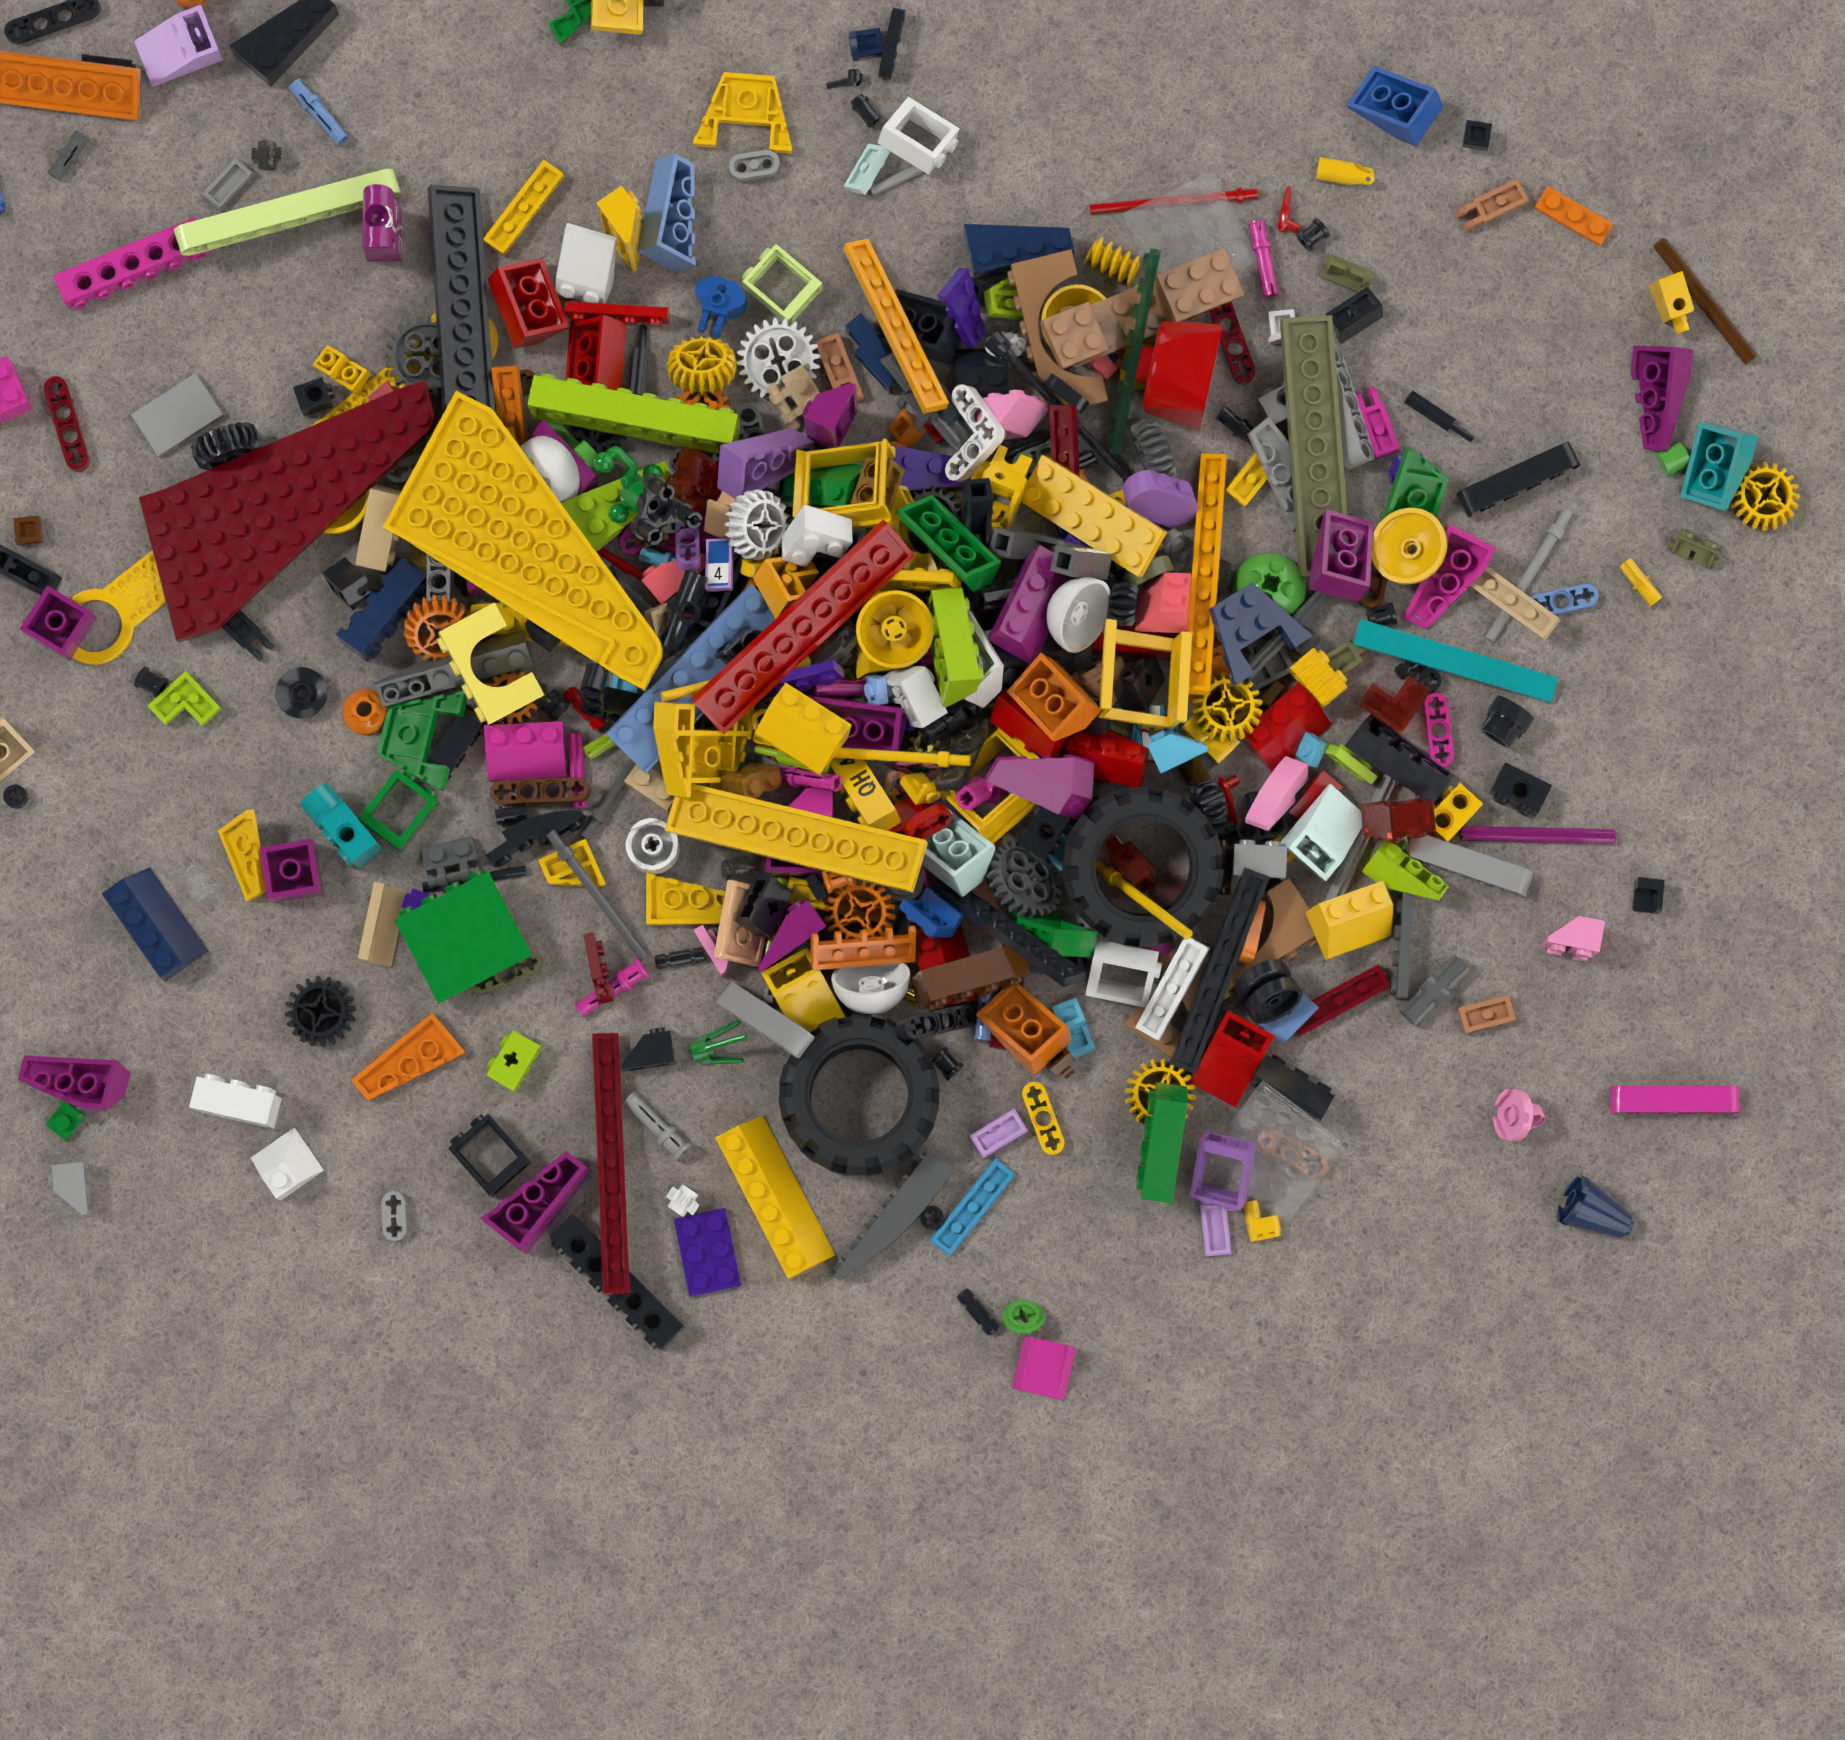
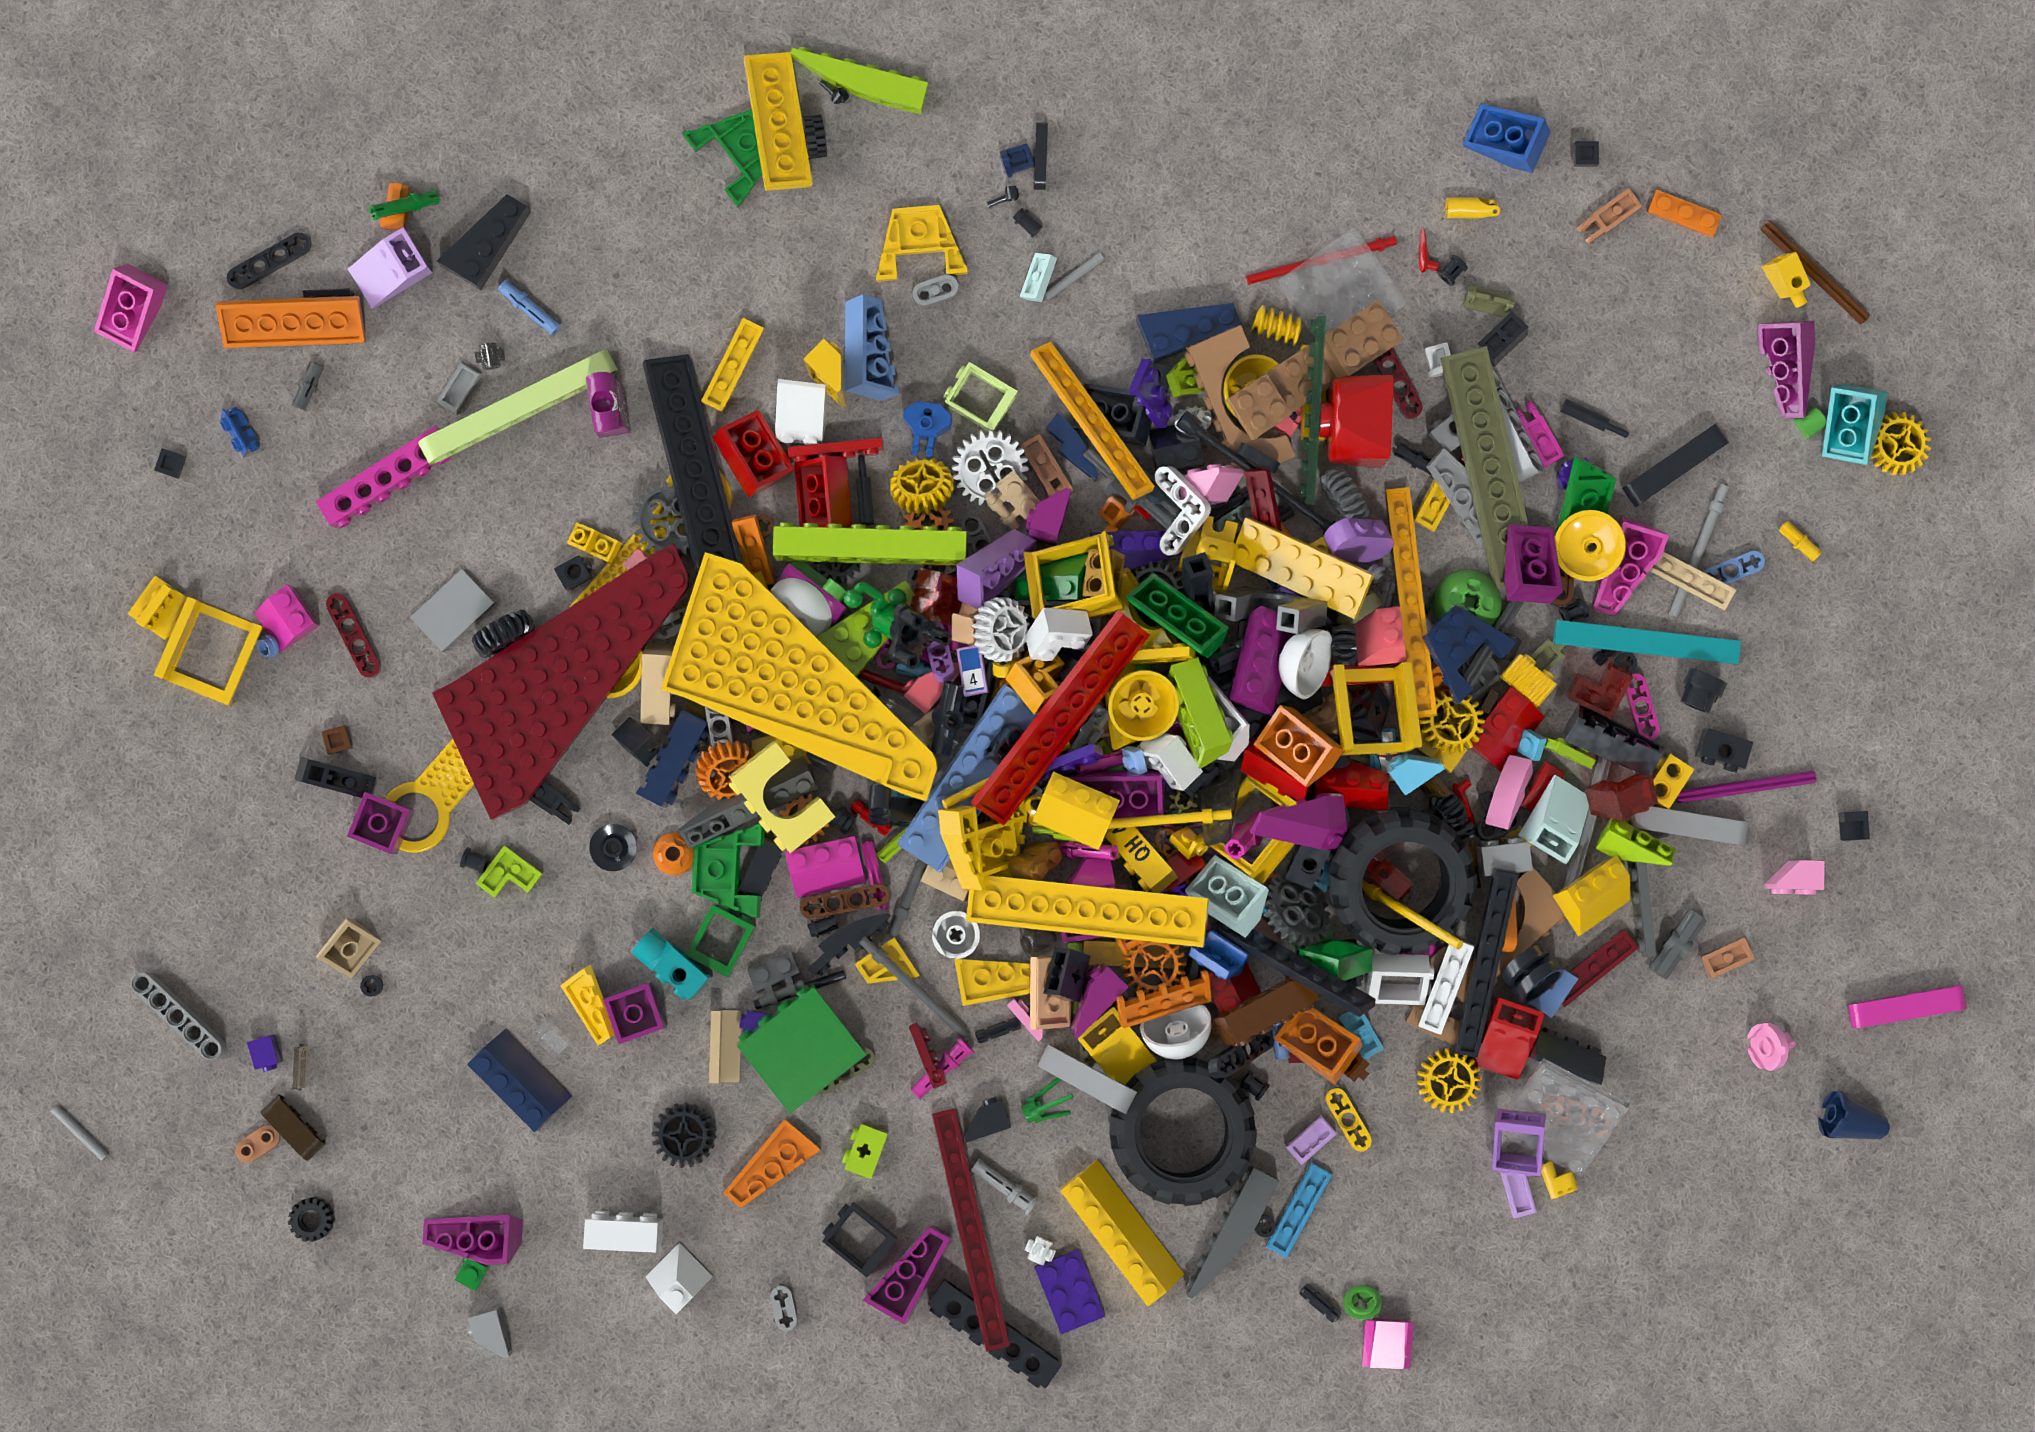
camera: 15 degrees left, 5 degrees up
(816, 888) = (1110, 949): black tile -> none
(911, 150) = (1076, 254): white window -> none
(928, 822) = (1201, 874): red beam -> none
(1163, 1144) = (1462, 1128): green brick -> none
(1261, 247) = (1414, 306): dark pink pin -> none
(1704, 550) = (1852, 502): olive hinge -> none

